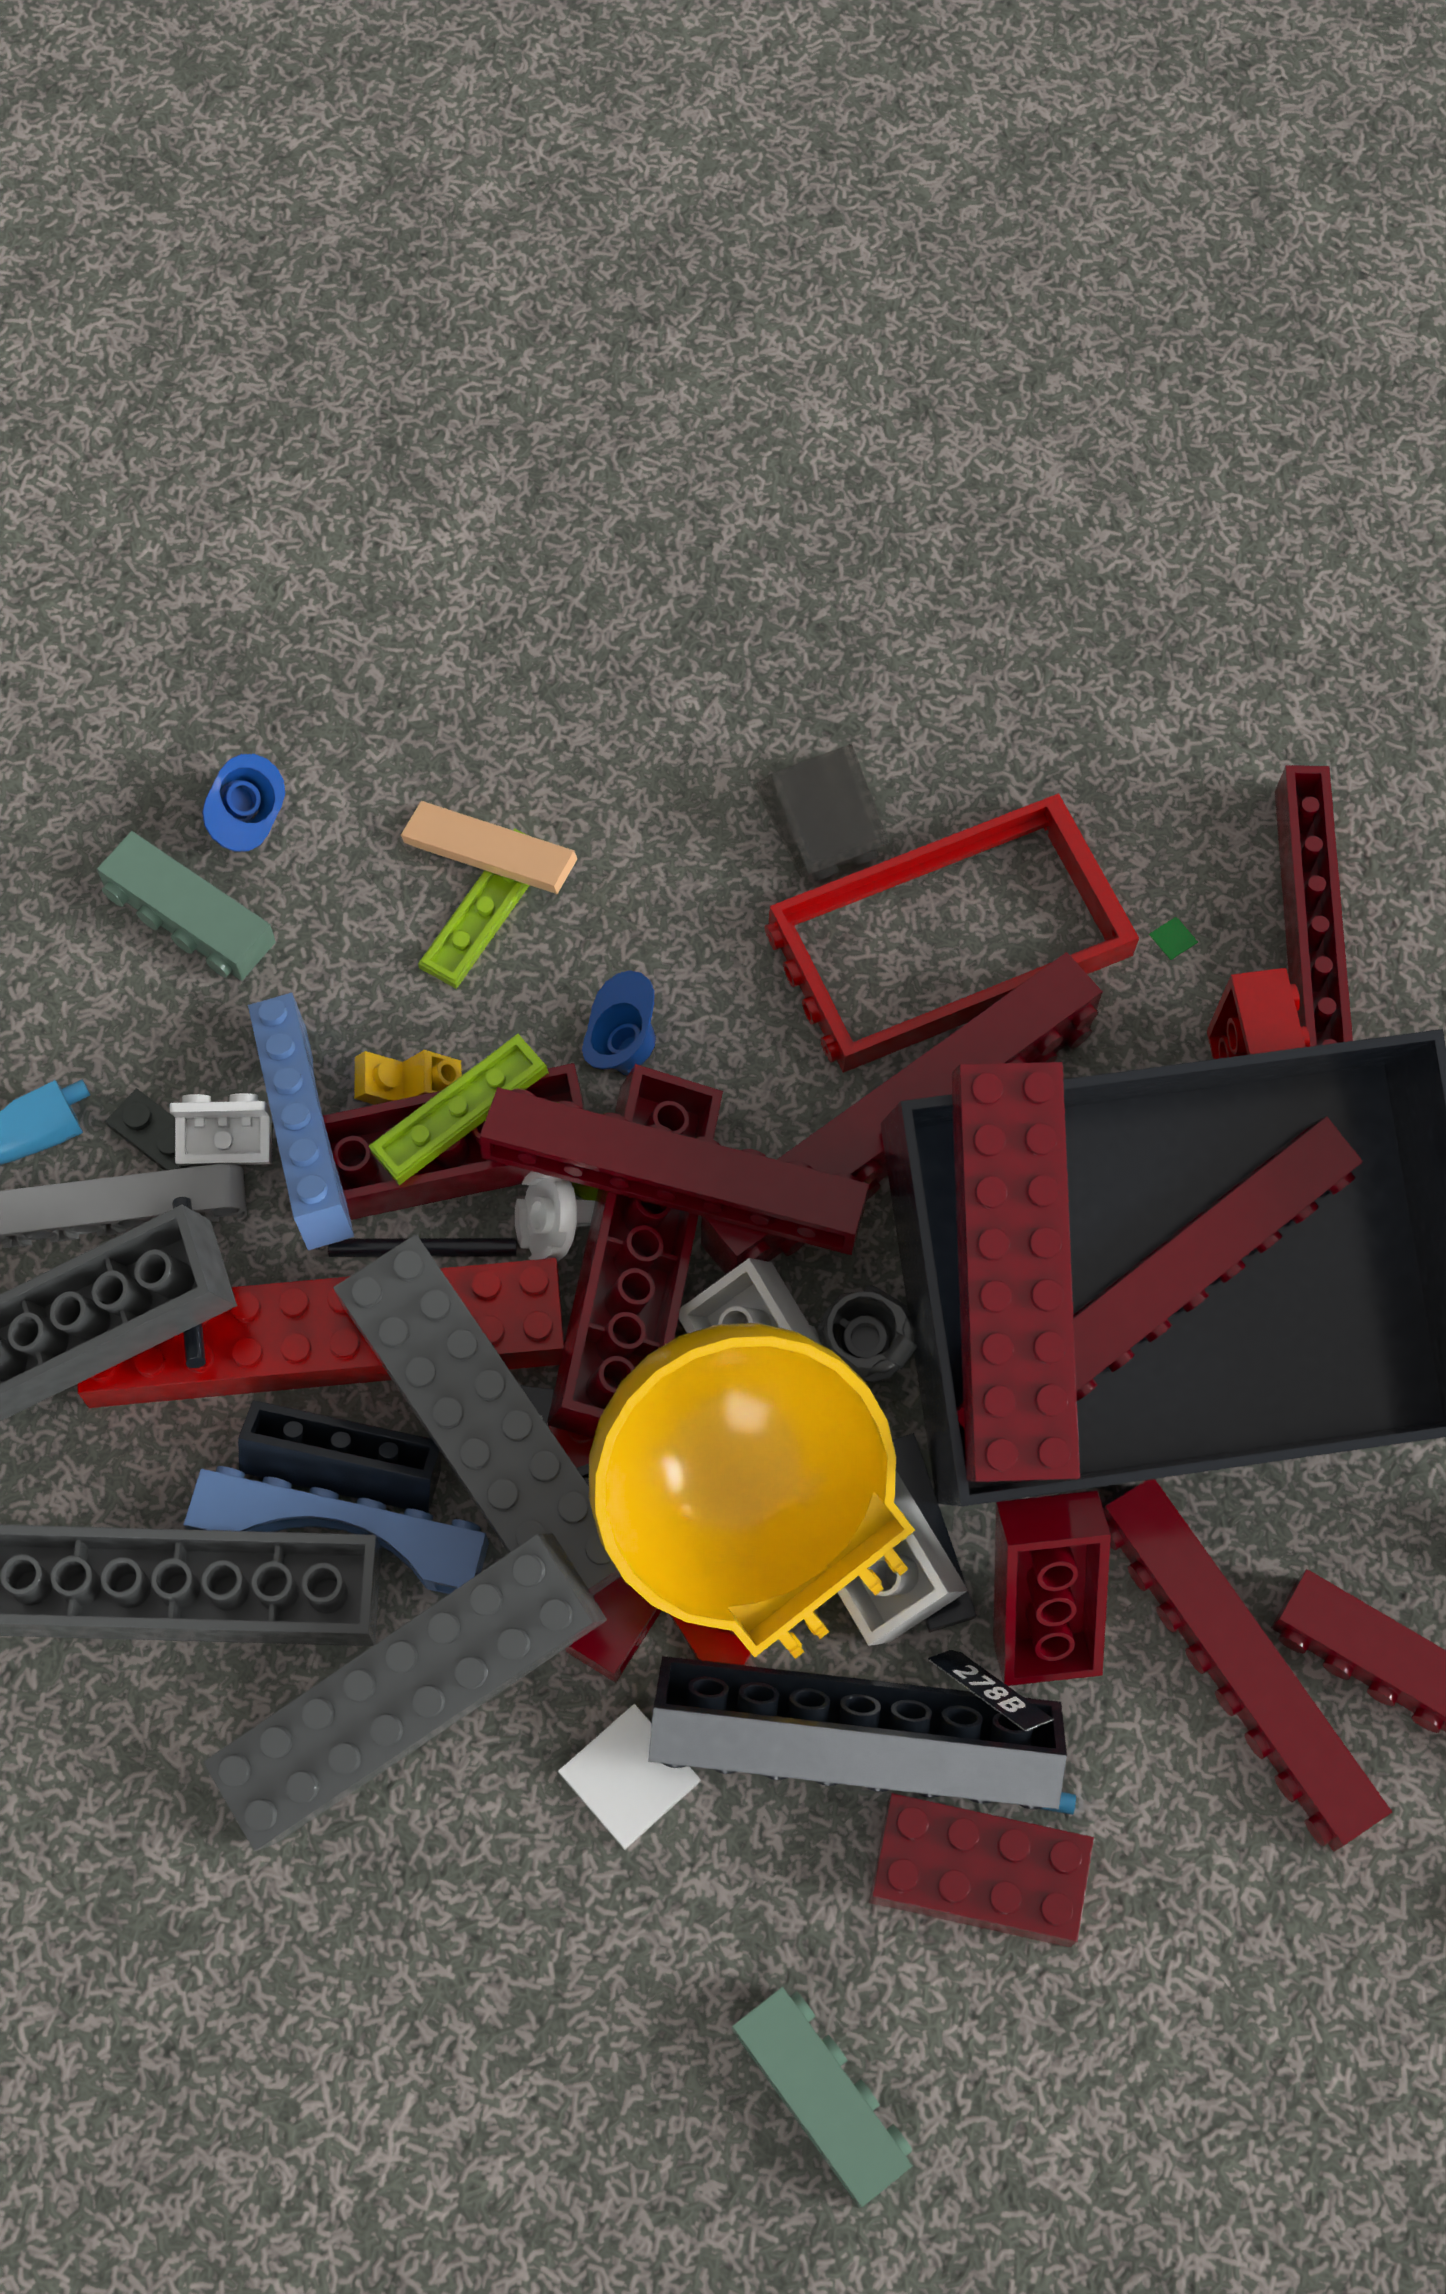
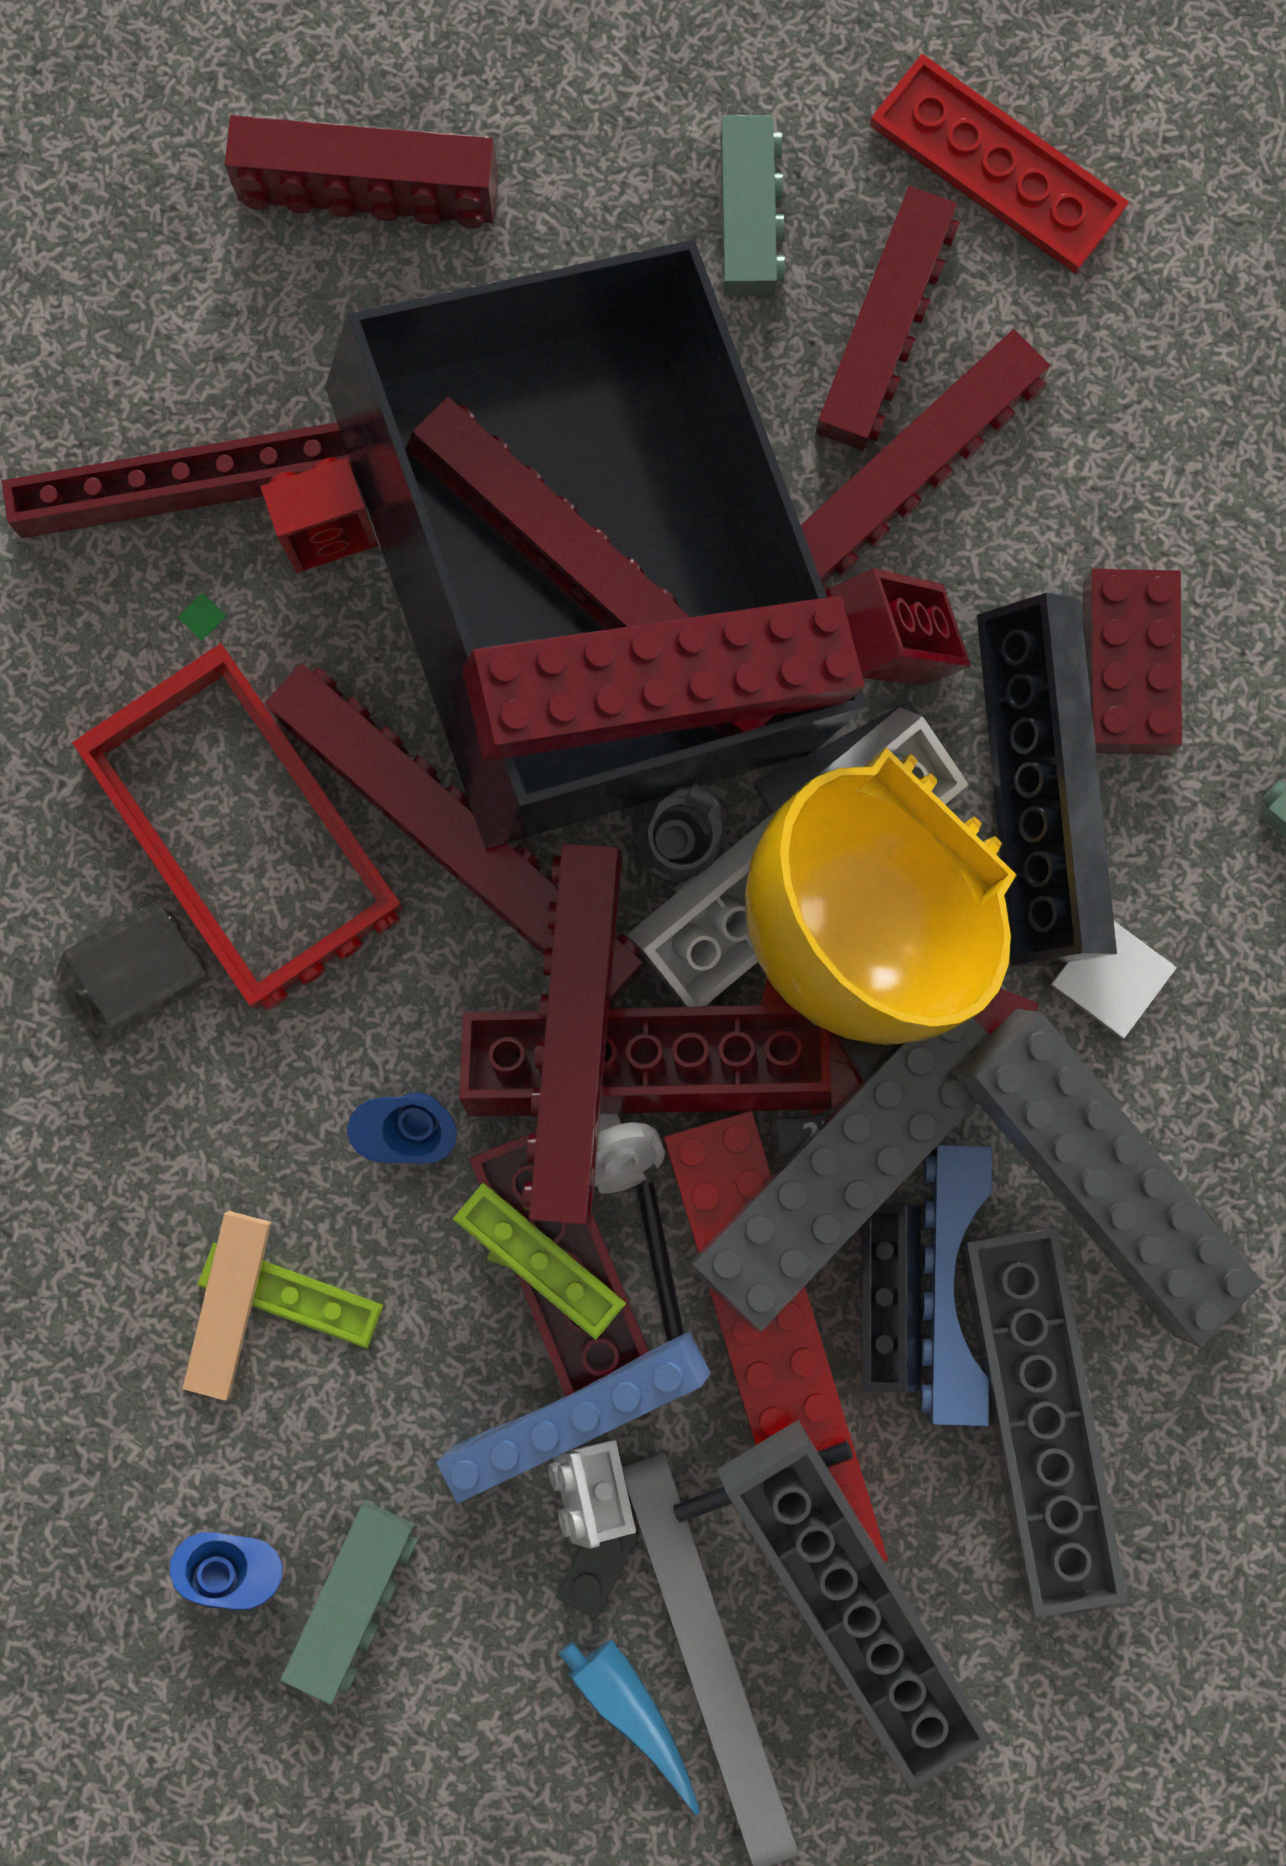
camera: 100 degrees left, 15 degrees up
(387, 1079) = (496, 1327): yellow slope -> none
(990, 1689) = (981, 675): black sticker -> none

